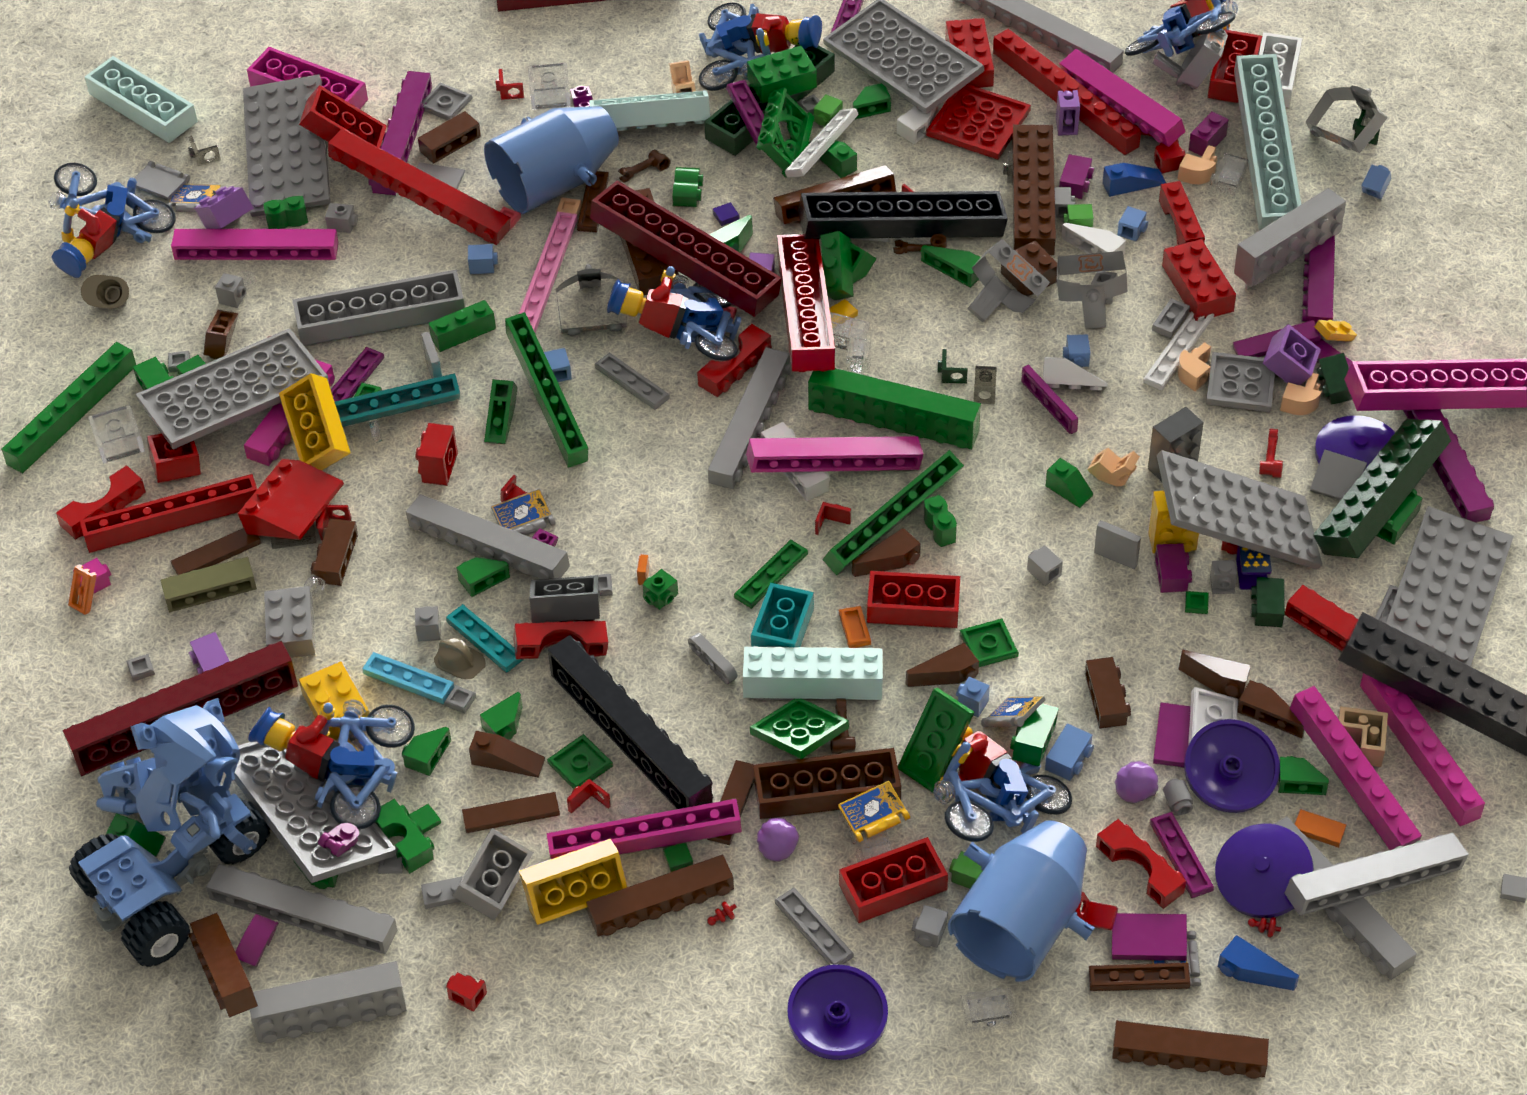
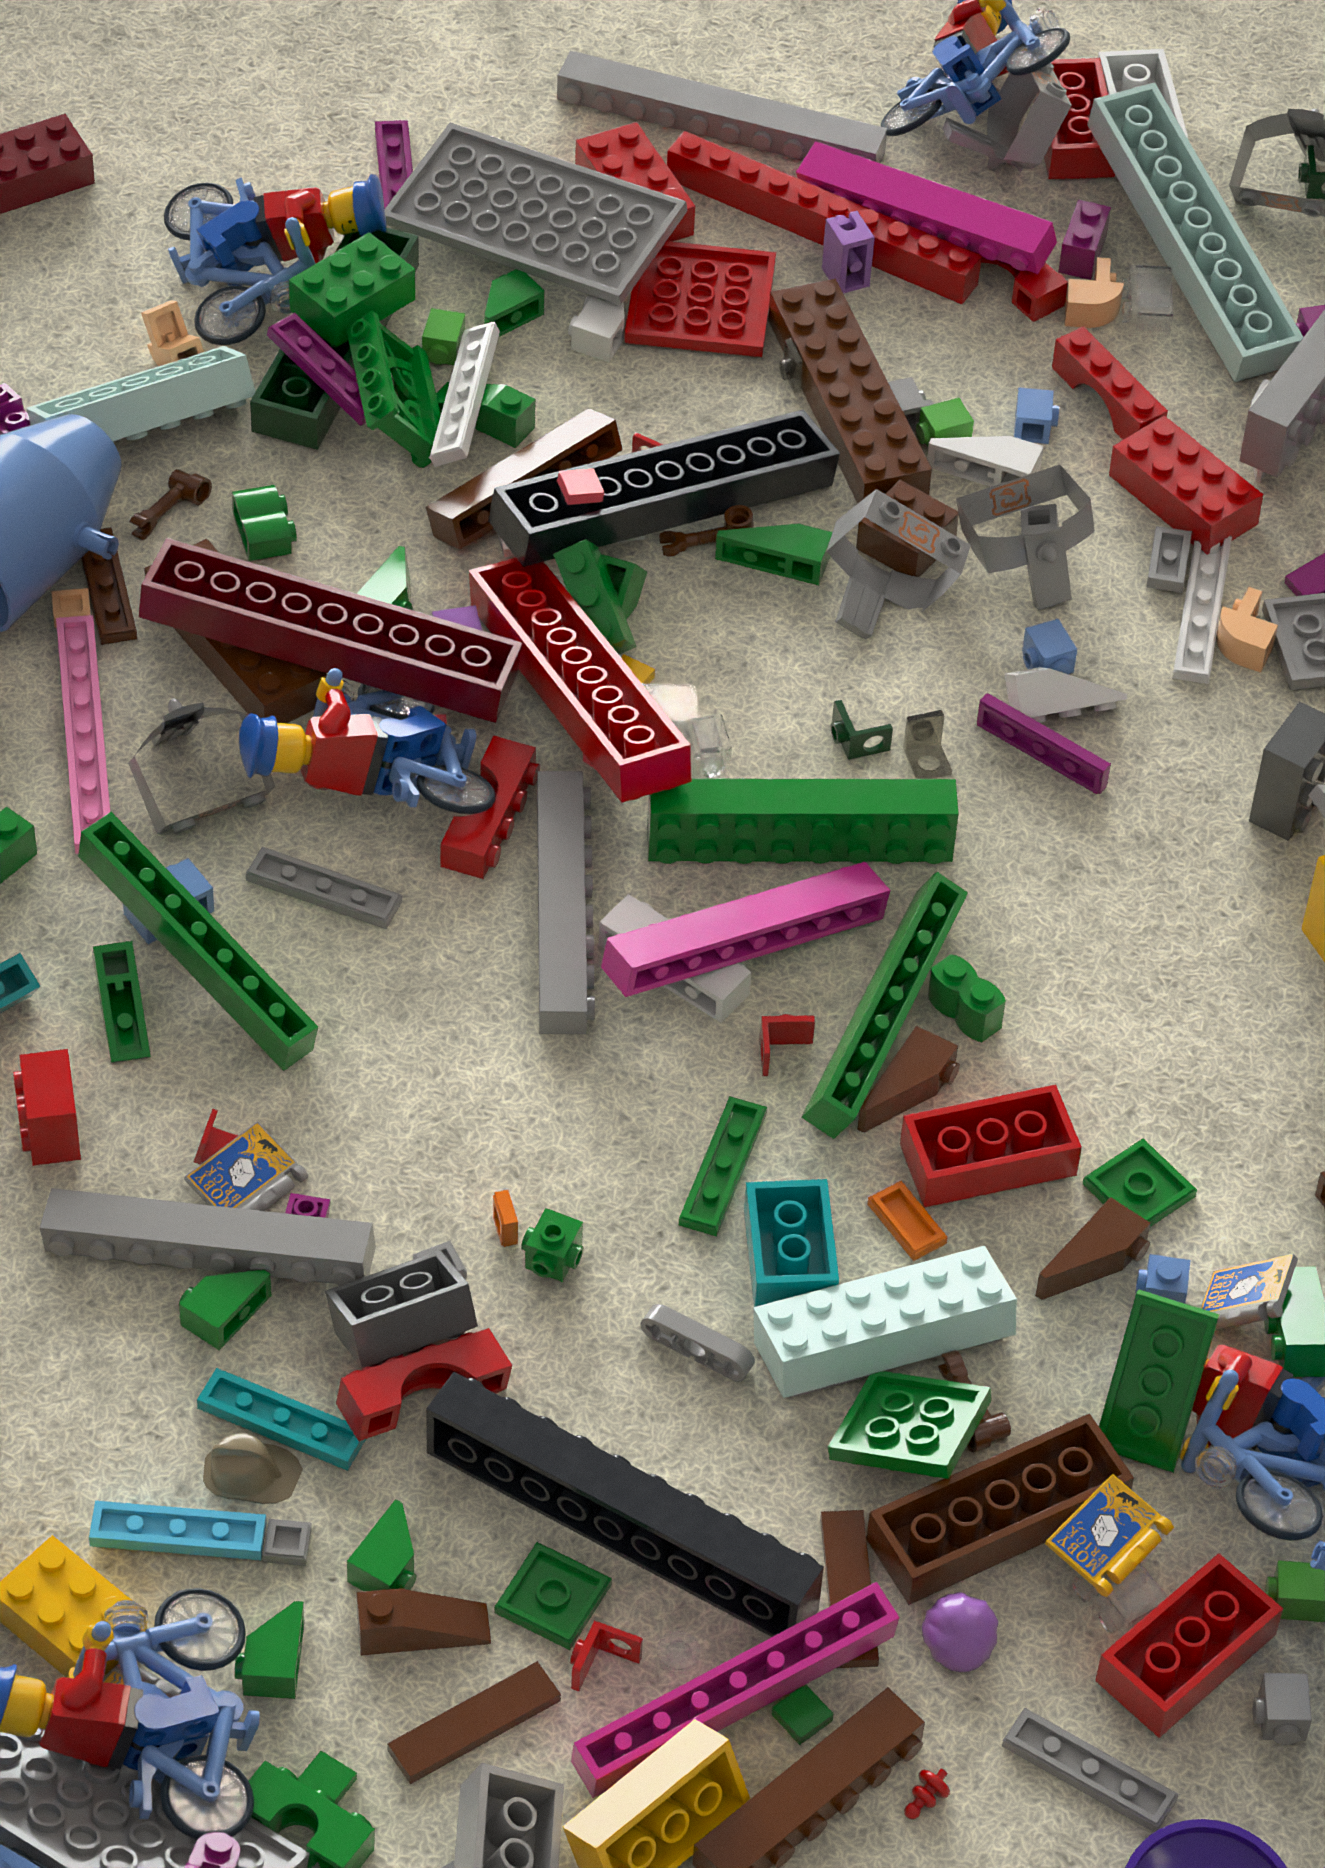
camera: 25 degrees left, 0 degrees up
(427, 623) = (170, 1421): light grey brick -> none
(726, 214) = (349, 554): dark purple tile -> none
(808, 103) = (407, 329): light grey tile -> none
(848, 202) = (580, 486): none -> tile
(1044, 565) = (1172, 1028): light grey brick -> none
(1068, 483) = (1141, 878): green slope -> none
(1076, 175) = (907, 352): magenta brick -> none
(1113, 469) = (1201, 837): light nougat brick -> none
(1117, 544) = (1276, 962): light grey tile -> none
(1128, 178) = (992, 340): blue slope -> none

